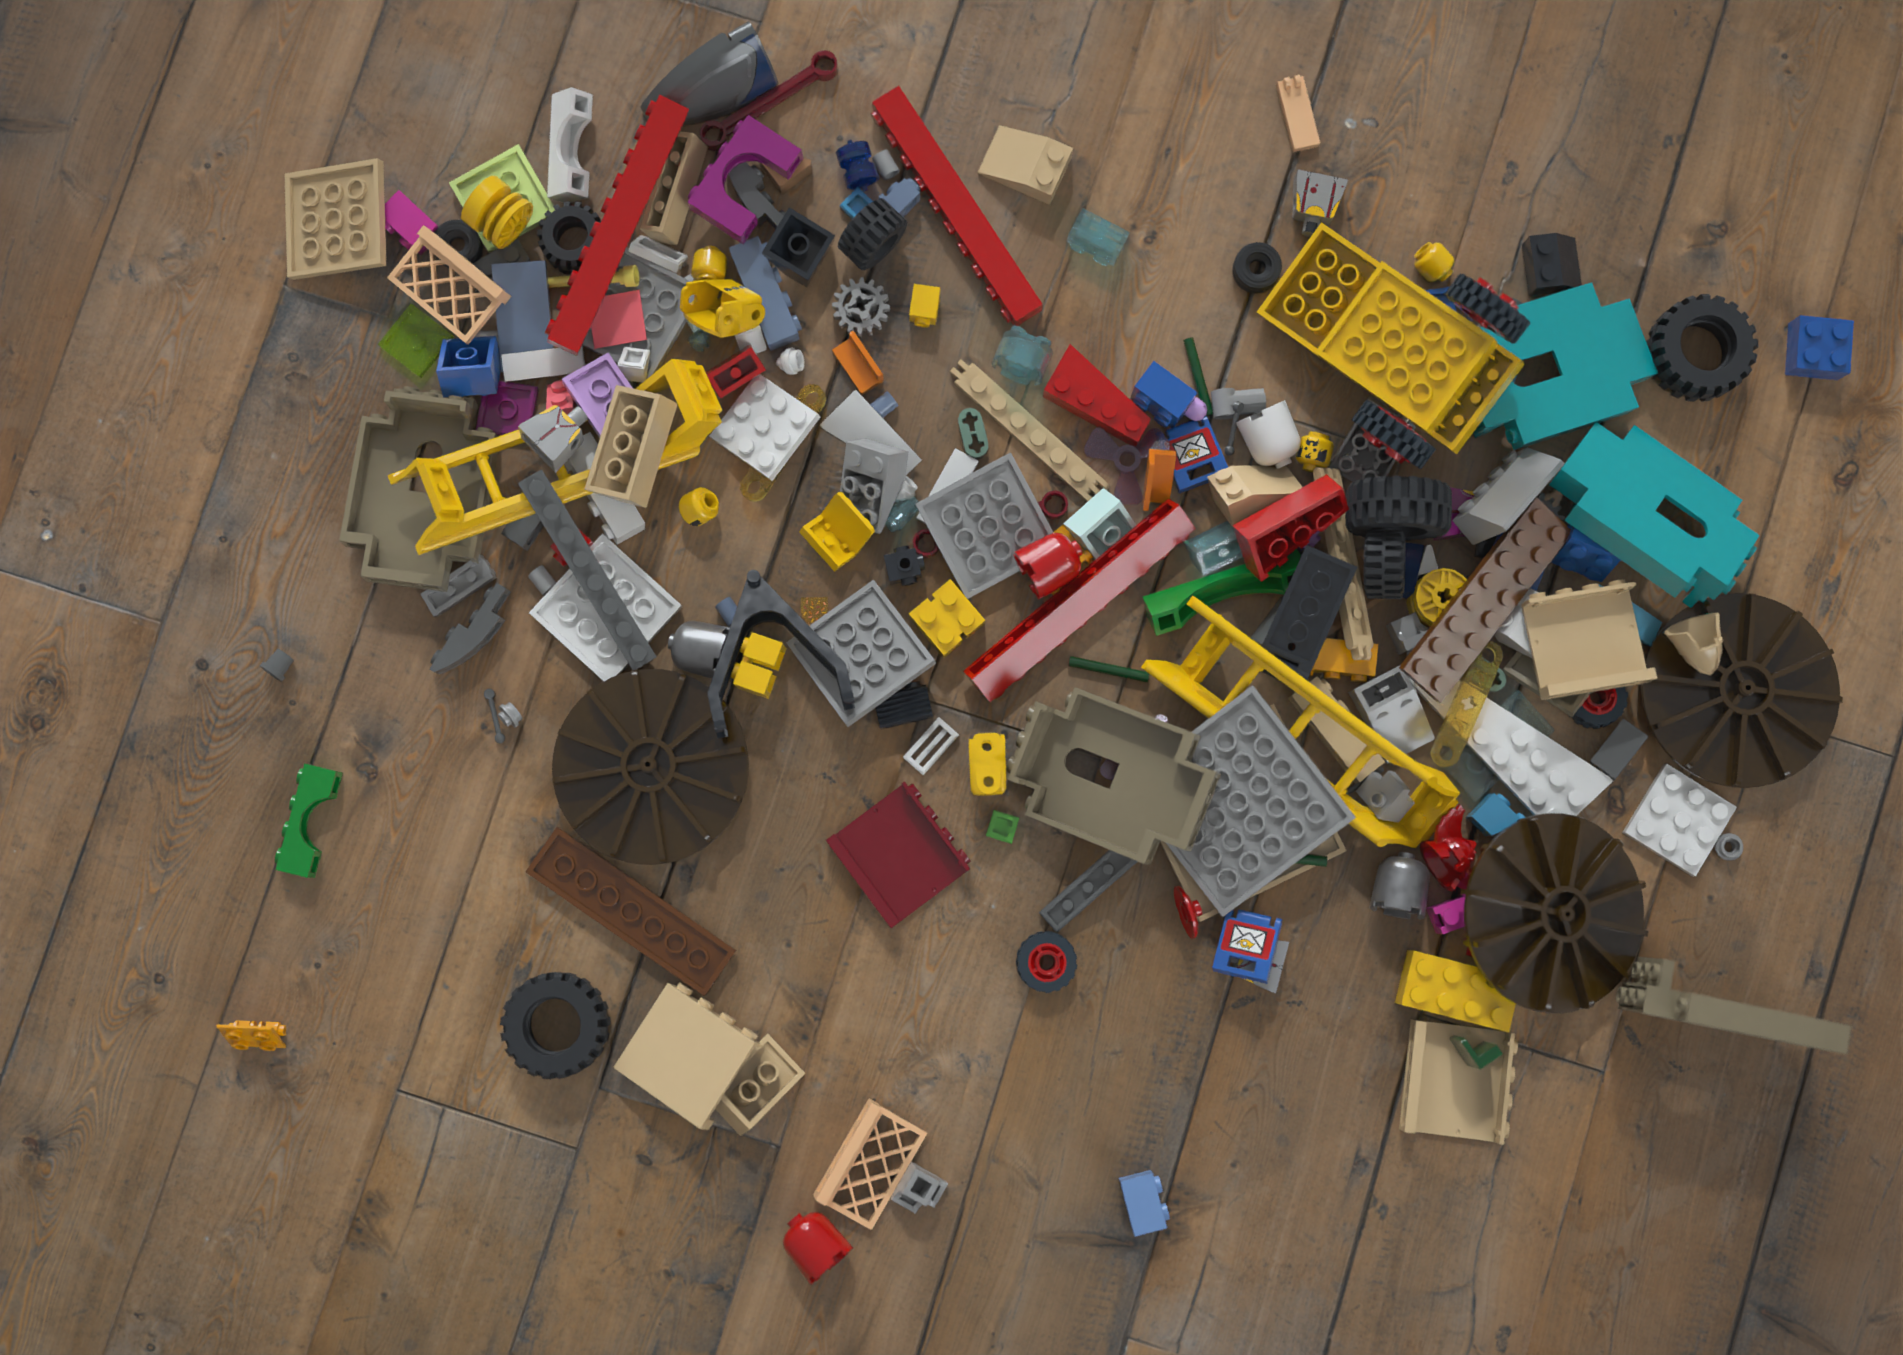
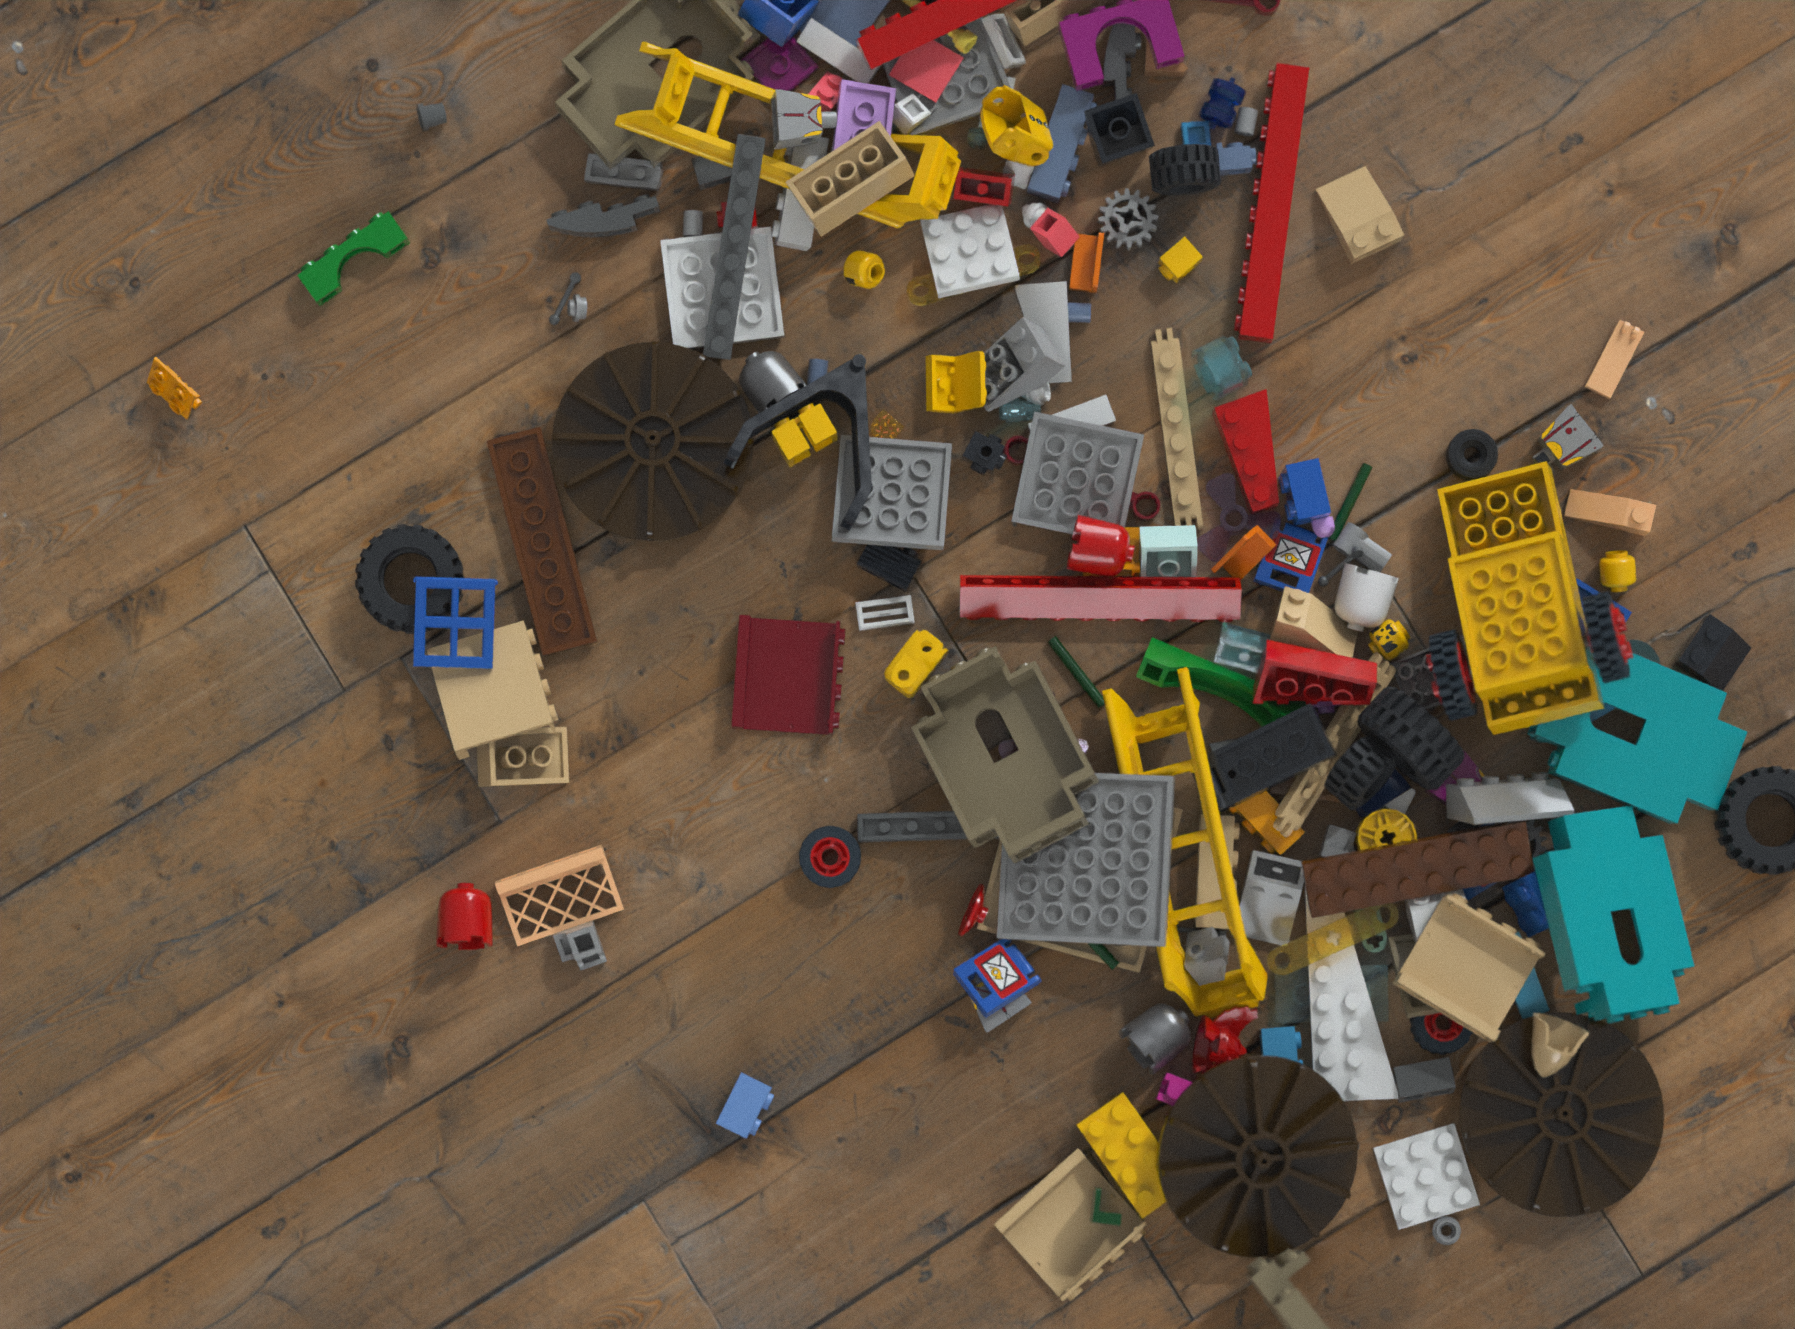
camera: 40 degrees right, 0 degrees up
(616, 1031) = (454, 622): none -> blue window
(709, 264) = (1036, 83): yellow head -> none
(816, 361) = (1054, 232): none -> coral brick
(947, 618) = (983, 522): yellow piece -> none
(979, 432) = (1136, 398): sand green beam -> none
(1002, 826) = (886, 723): bright green tile -> none
(1097, 237) = (1364, 323): clear light blue brick -> none
(1393, 223) = (1610, 511): none -> light nougat slope

